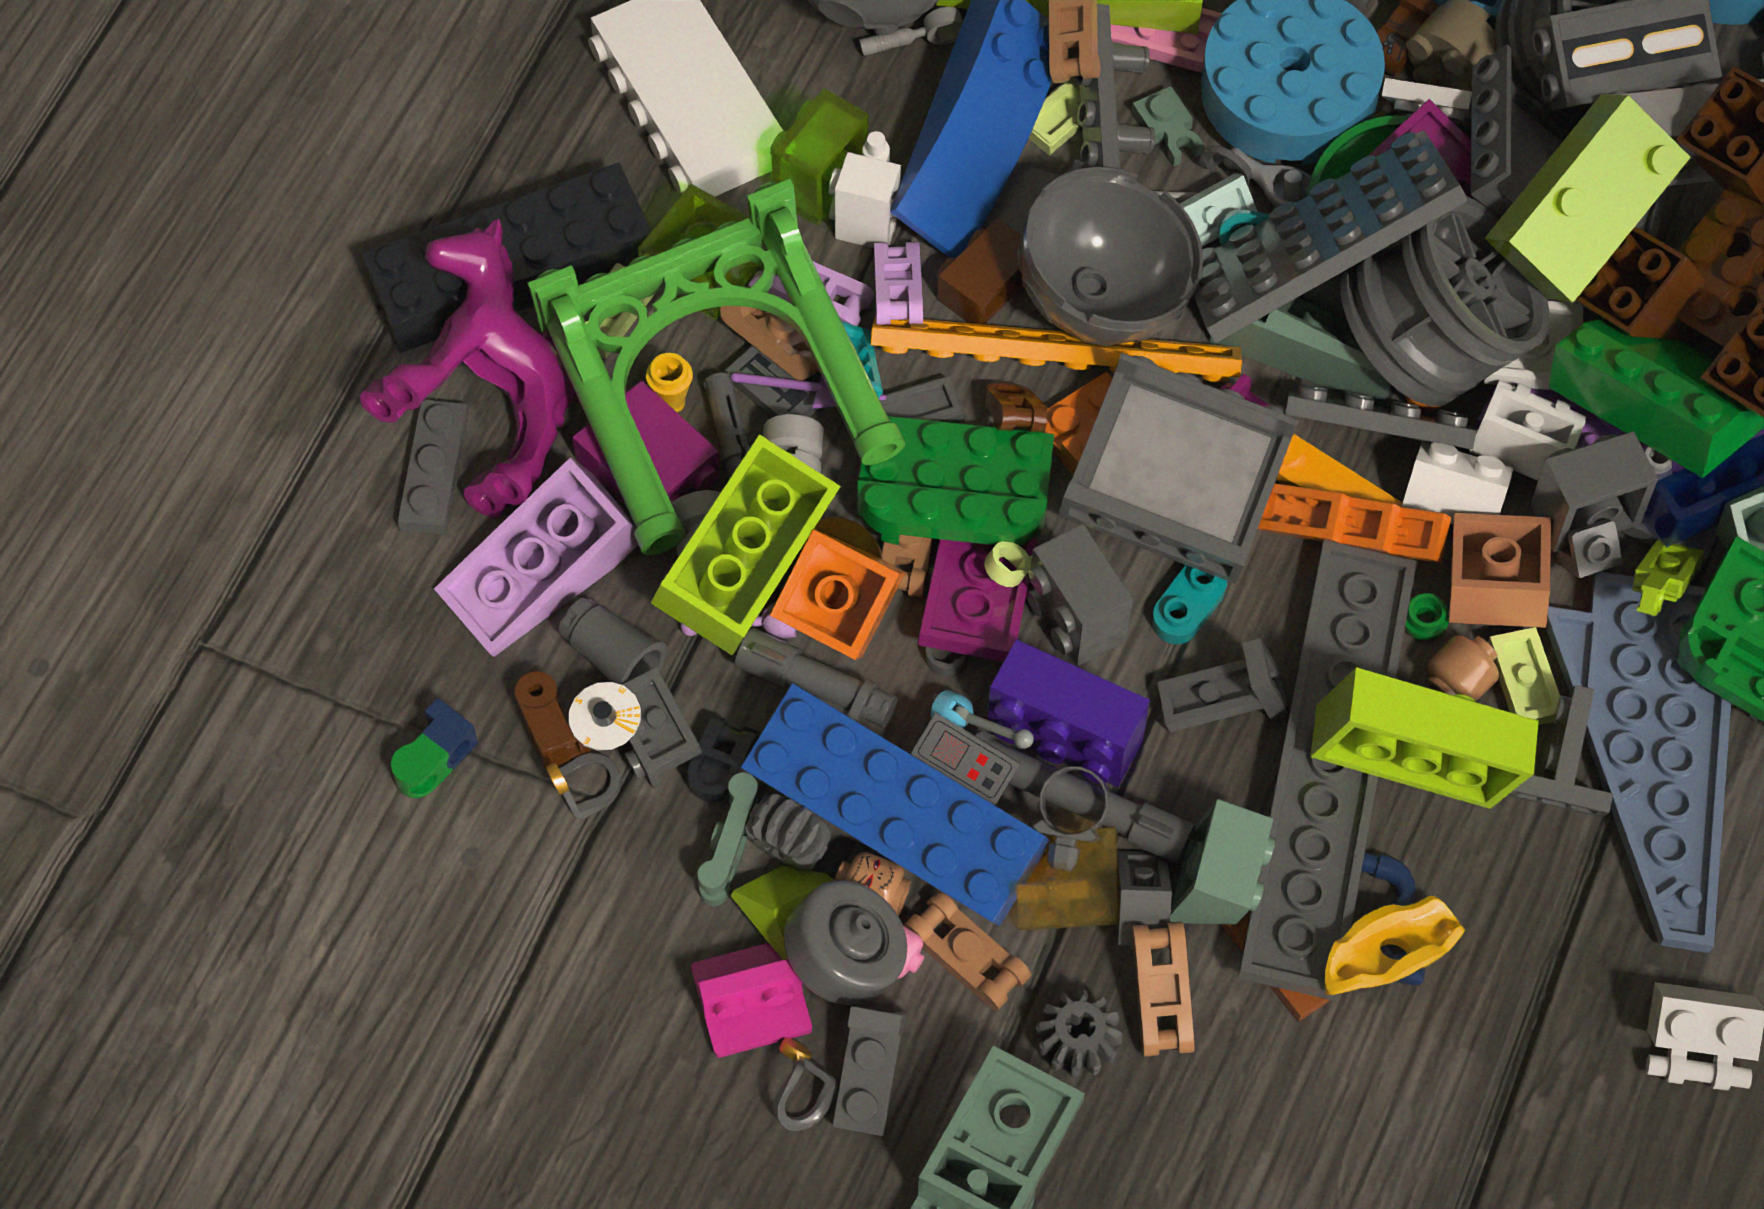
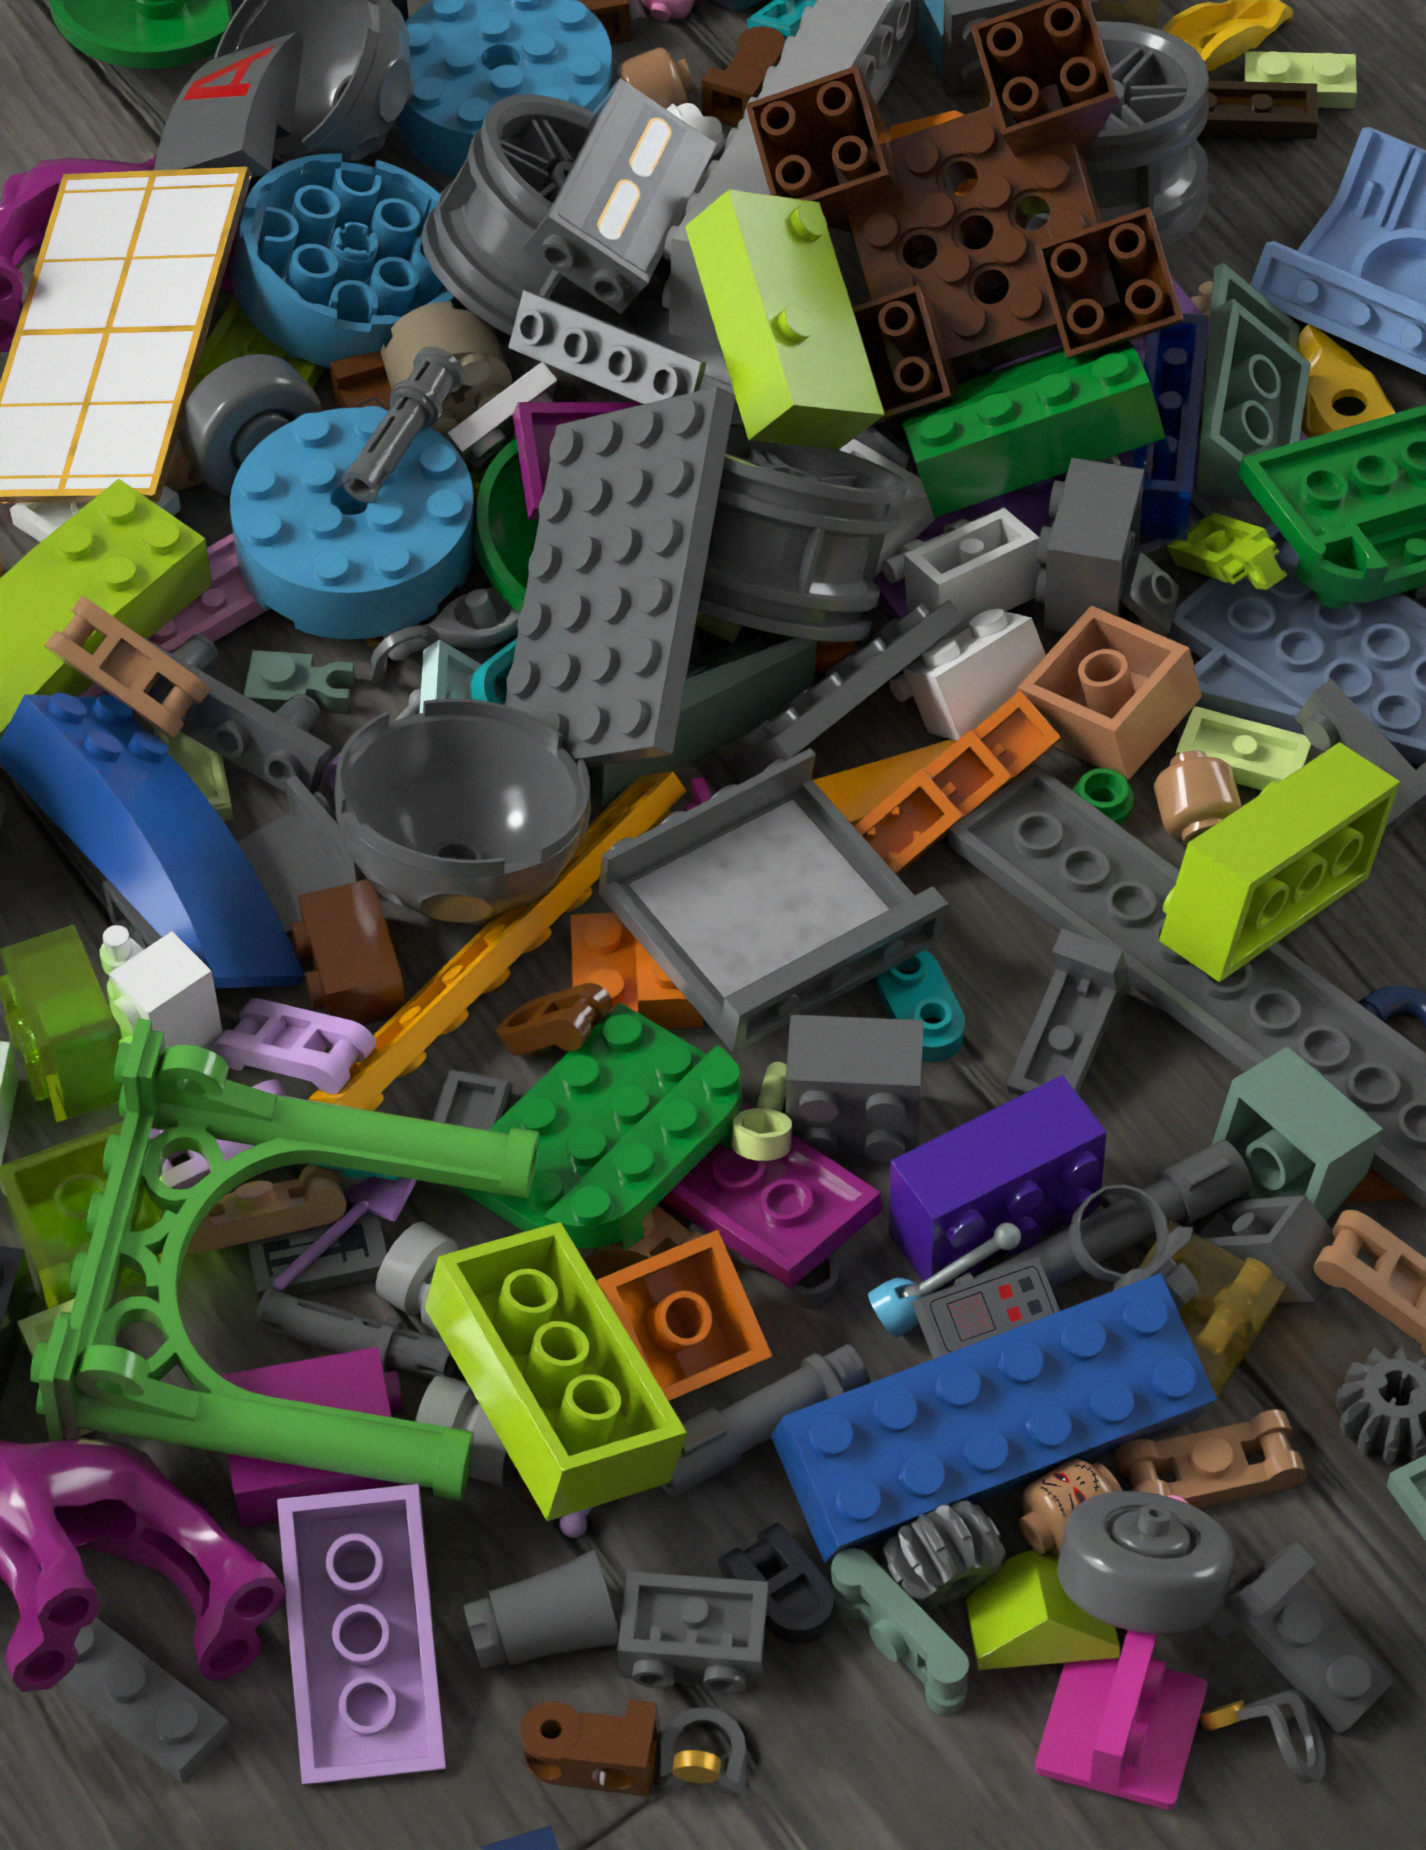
camera: 55 degrees left, 10 degrees down
(604, 716) = (649, 1667): white piece -> none
(670, 379) = (236, 1340): yellow cone -> none
(1381, 46) = (414, 406): none -> dark grey pin

